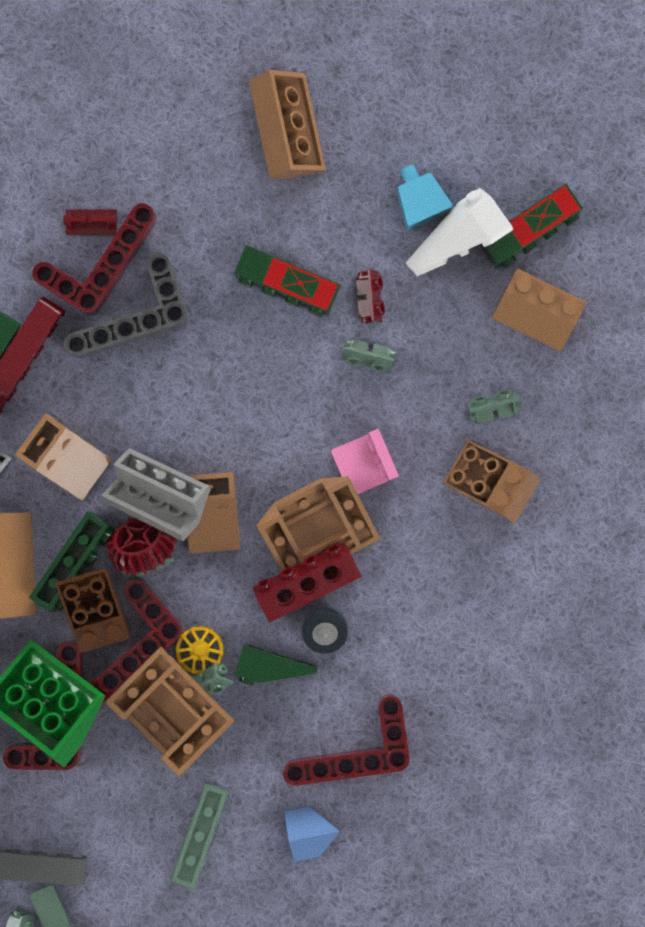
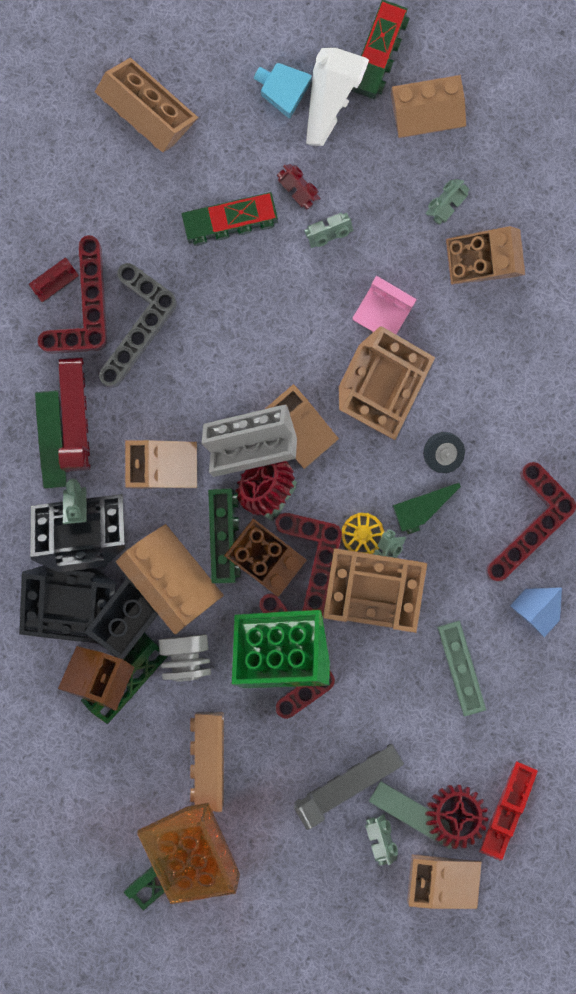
camera: 30 degrees left, 0 degrees up
(302, 593) = (415, 422): dark red brick -> none

